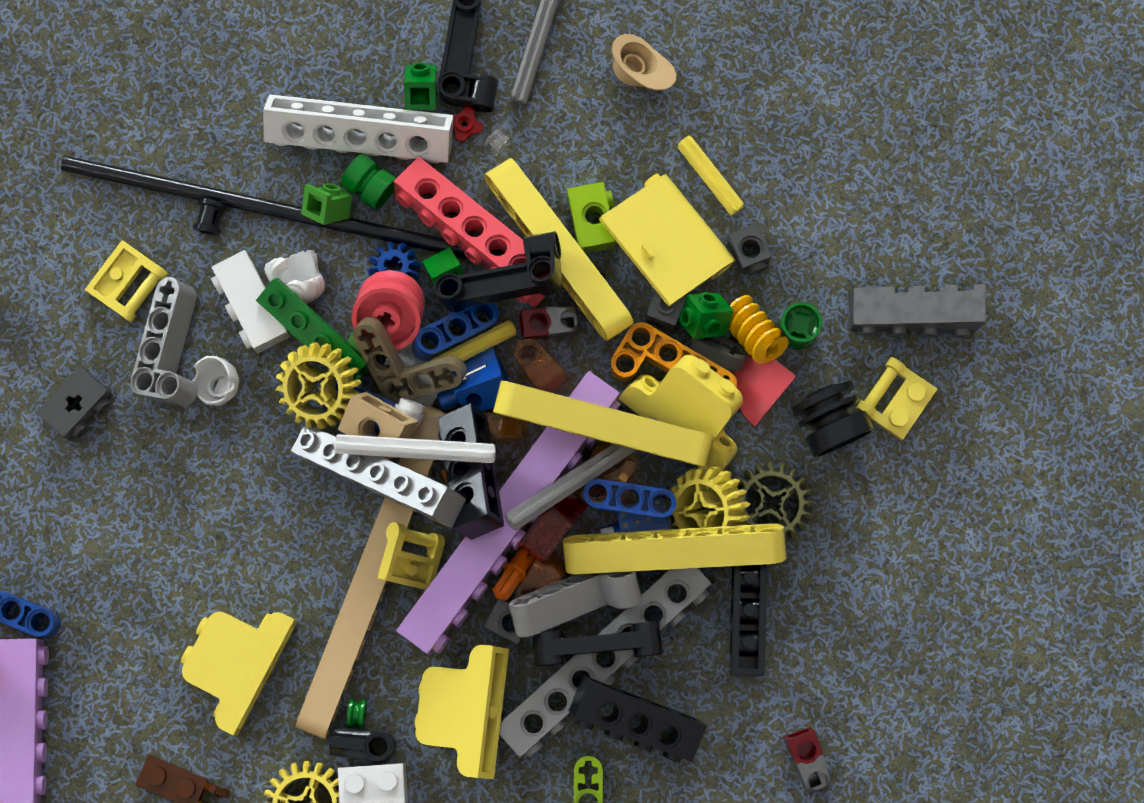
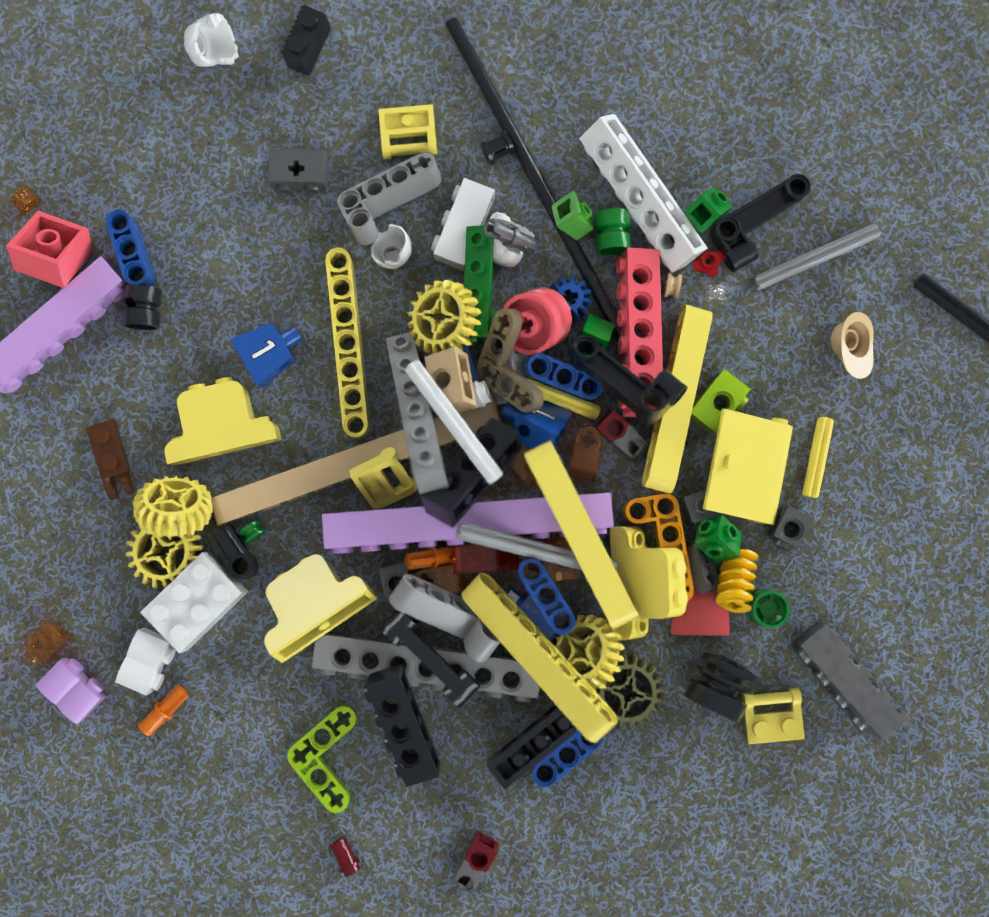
camera: 50 degrees right, 5 degrees up
(74, 643) = (141, 308): none -> black wheel
(210, 566) = (266, 351): none -> blue torso
(255, 477) = (346, 330): none -> light yellow beam
(275, 760) = (172, 507): none -> light yellow gear
(297, 270) = (509, 235): none -> flat silver pin
(459, 171) = (672, 286): none -> tan bush
(786, 616) = (562, 766): none -> blue beam

